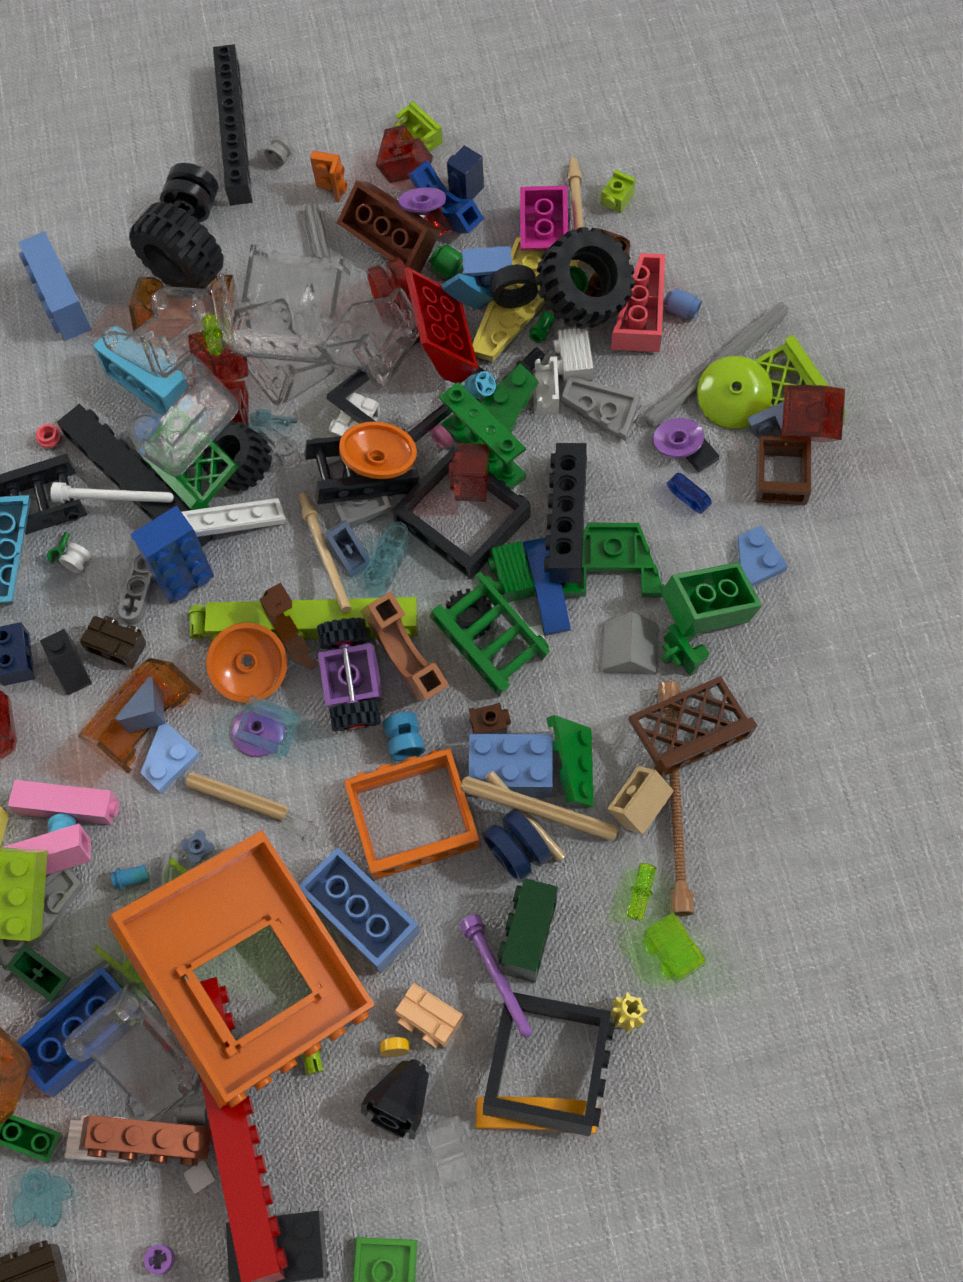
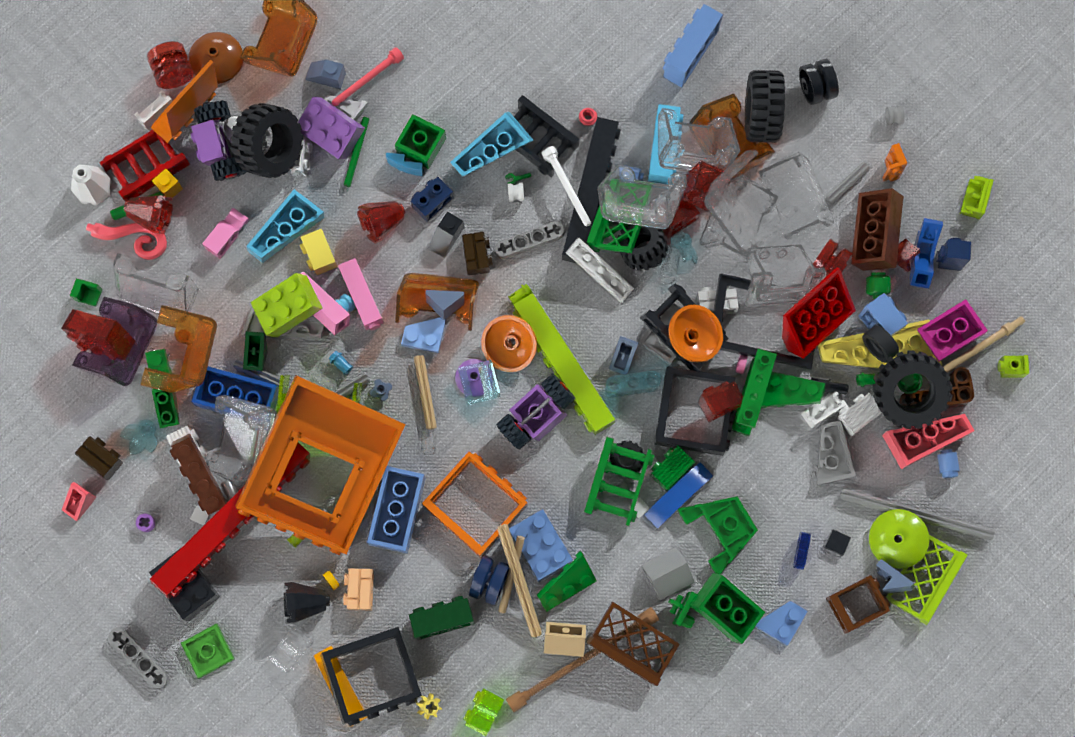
camera: 55 degrees right, 10 degrees up
(173, 554) = (545, 254): blue brick -> none
(212, 334) = (710, 175): clear neon green axle -> none
(232, 125) = (896, 70): black brick -> none
(275, 603) = (550, 341): reddish brown piece -> none
(310, 516) = (634, 316): tan bar -> none
(385, 621) = (563, 453): nougat arch -> none
(400, 154) = (942, 200): clear red brick -> none
(403, 736) = (514, 473): dark azure wheel -> none
(422, 200) = (909, 240): medium lavender dish -> none
(466, 291) = (858, 314): dark azure slope -> none
(474, 930) = (426, 585): medium lavender piece -> none
(482, 726) = (556, 509): reddish brown brick -> none
(485, 382) = (795, 370): medium azure wheel -> none
(567, 513) = (693, 504): black brick -> none
(641, 891) = (508, 672): clear neon green axle -> none
(678, 437) = (844, 515): medium lavender dish -> none
(813, 412) = (908, 602): clear red slope -> none

